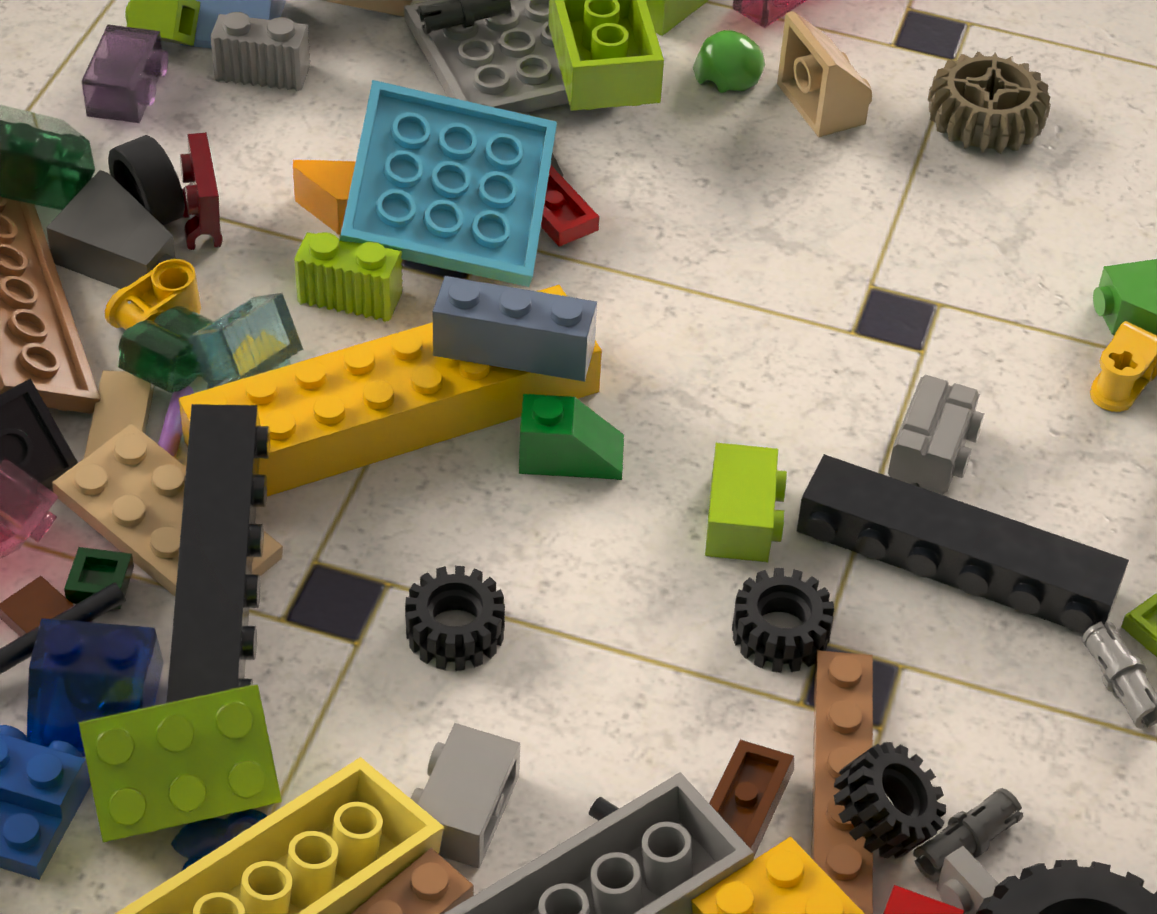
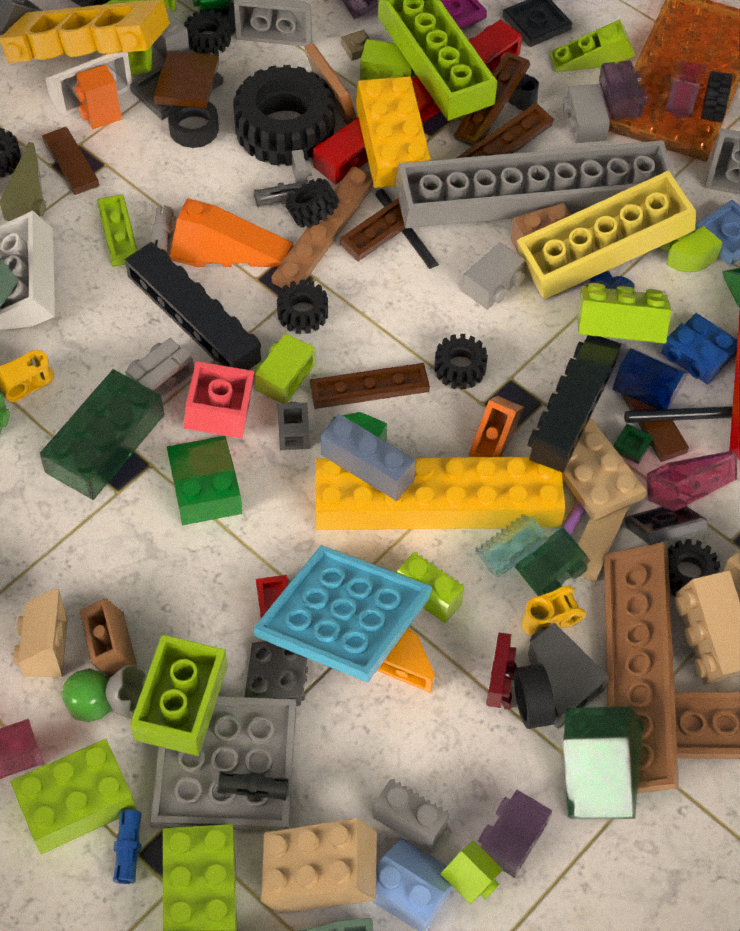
camera: 155 degrees left, 10 degrees up
(340, 526) = (496, 428): none -> orange slope
(590, 541) = (369, 385): none -> reddish brown tile
(678, 430) = (293, 426): none -> dark grey brick
(683, 58) = (124, 690): none -> light grey hair
(741, 95) = (107, 637): none -> medium nougat brick
(758, 317) = (204, 480): none -> green slope
(809, 403) = (218, 399): none -> coral brick
(945, 313) = (102, 434): none -> clear green brick
(1002, 700) = (215, 236): none -> orange wedge

